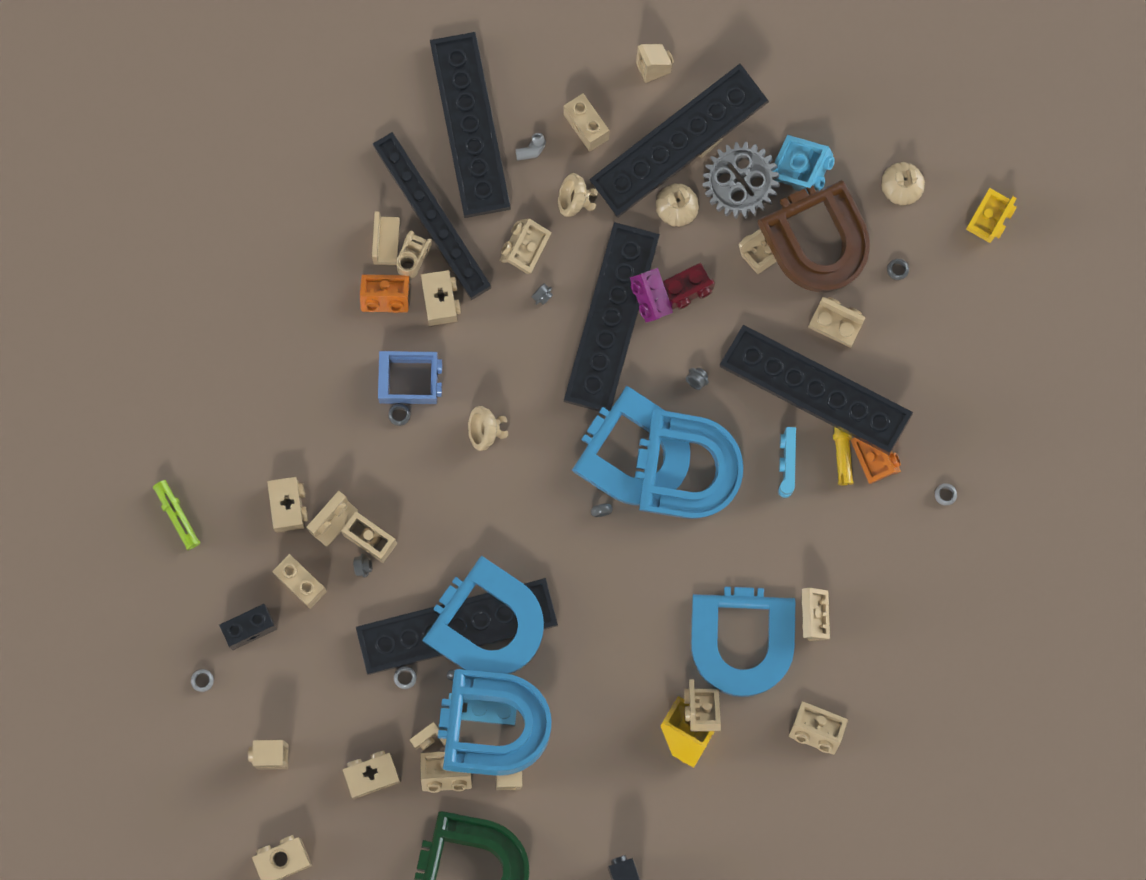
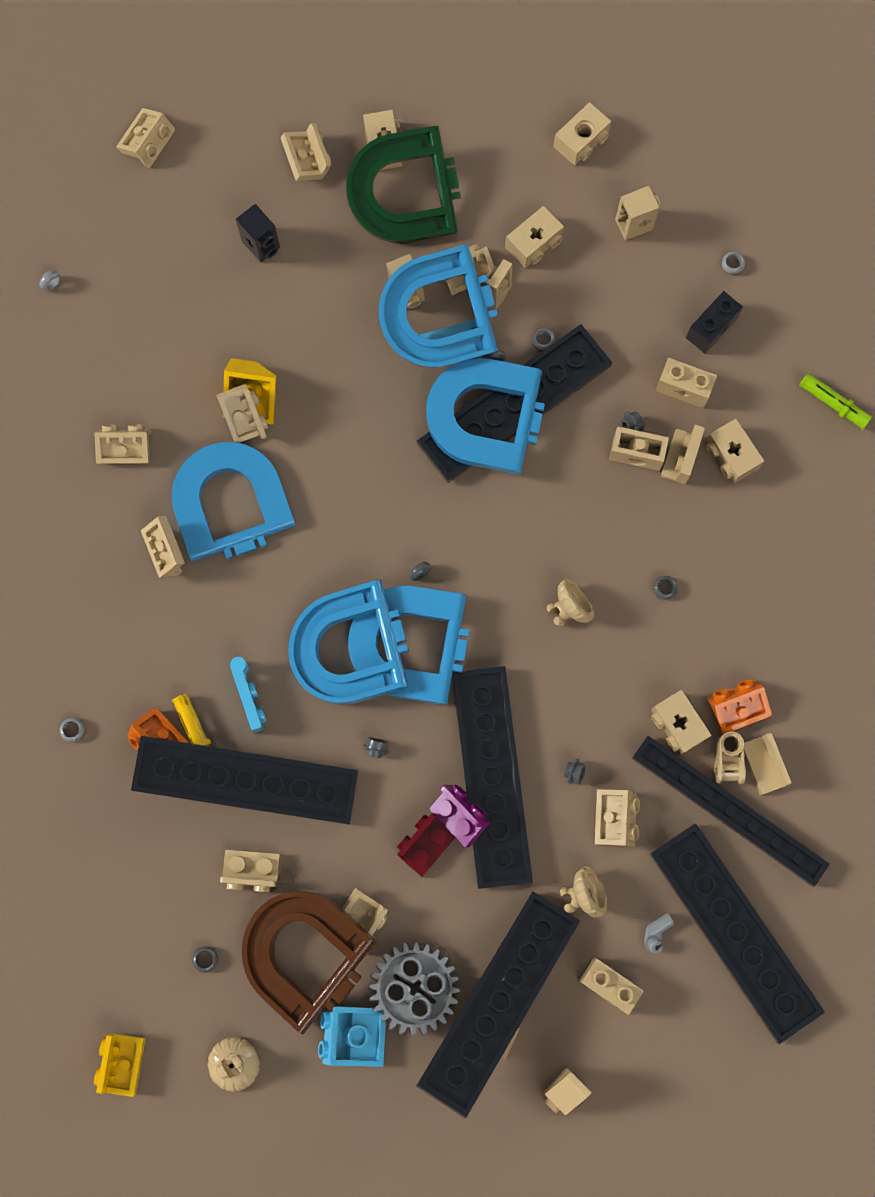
camera: 160 degrees right, 0 degrees up
(388, 357) = (697, 615): medium blue window -> none
(676, 212) = (460, 934): tan hair -> none

